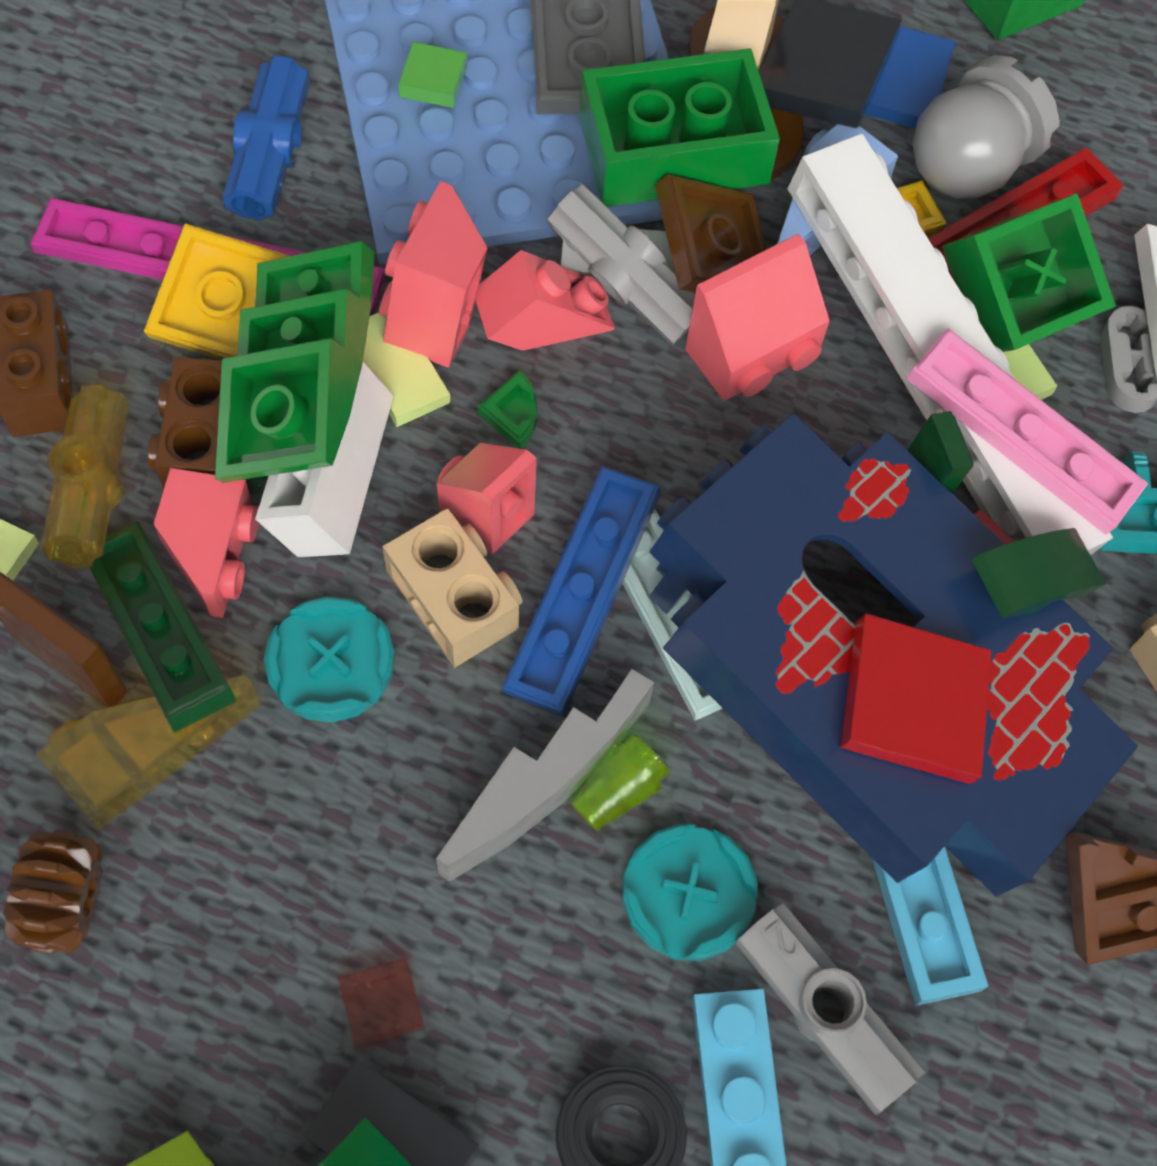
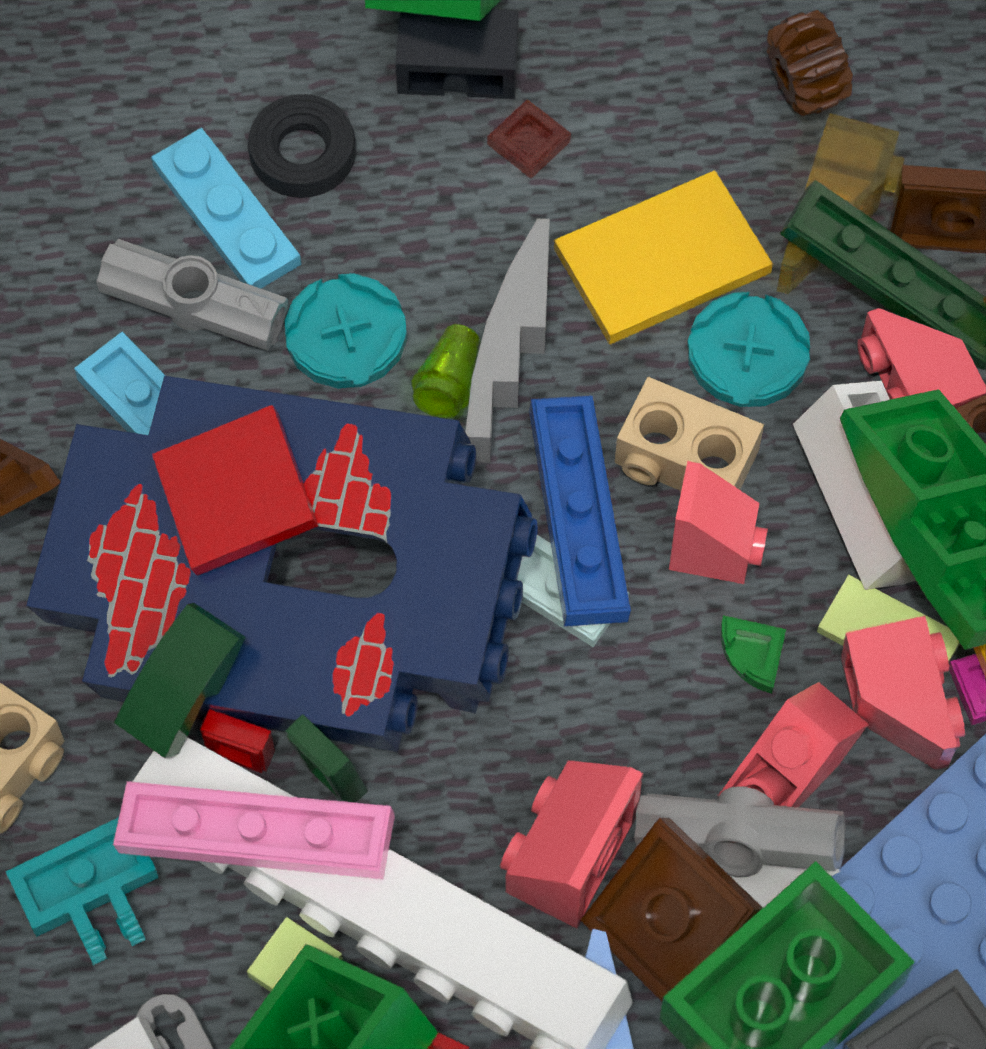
camera: 155 degrees right, 0 degrees up
(340, 794) = (662, 257): none -> yellow tile

